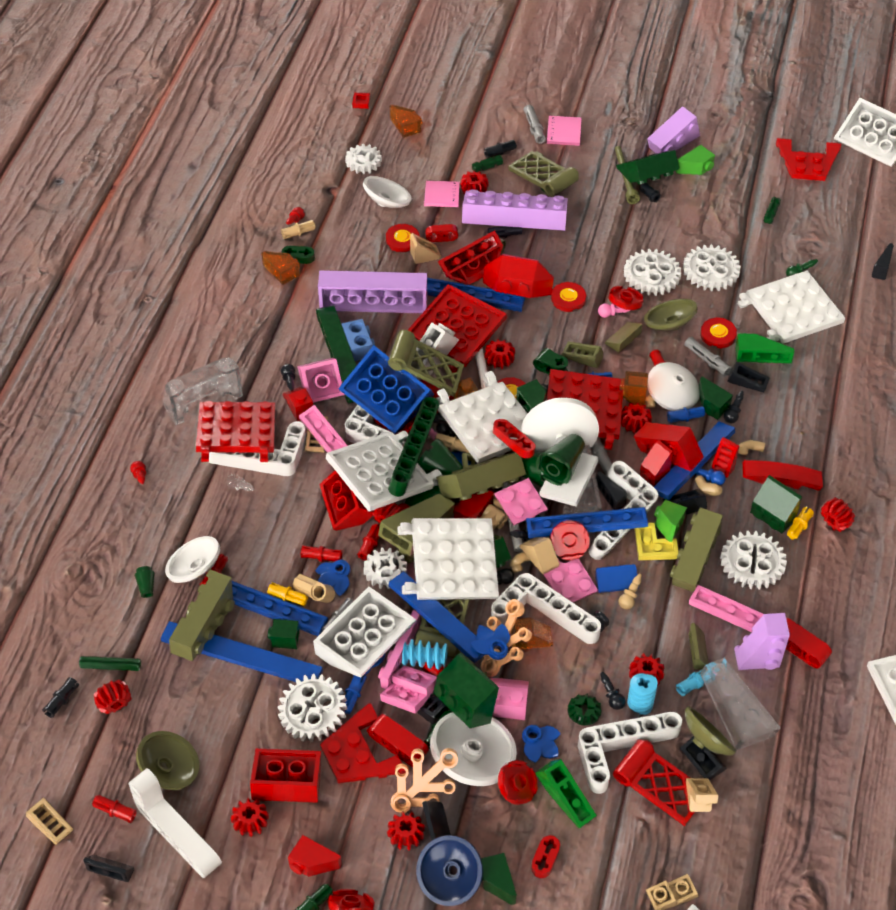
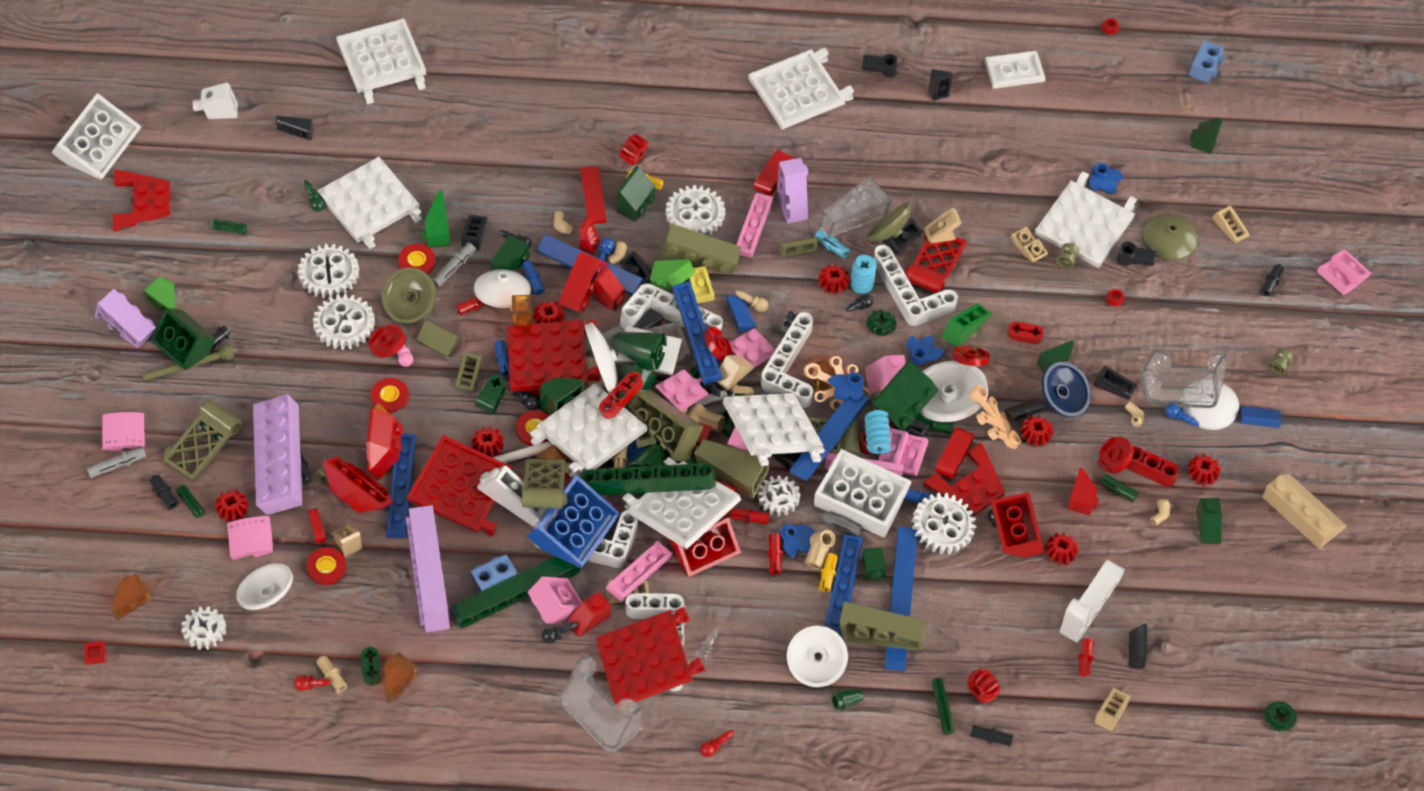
camera: 105 degrees left, 5 degrees up
(169, 759) = (1033, 620): olive dish -> none

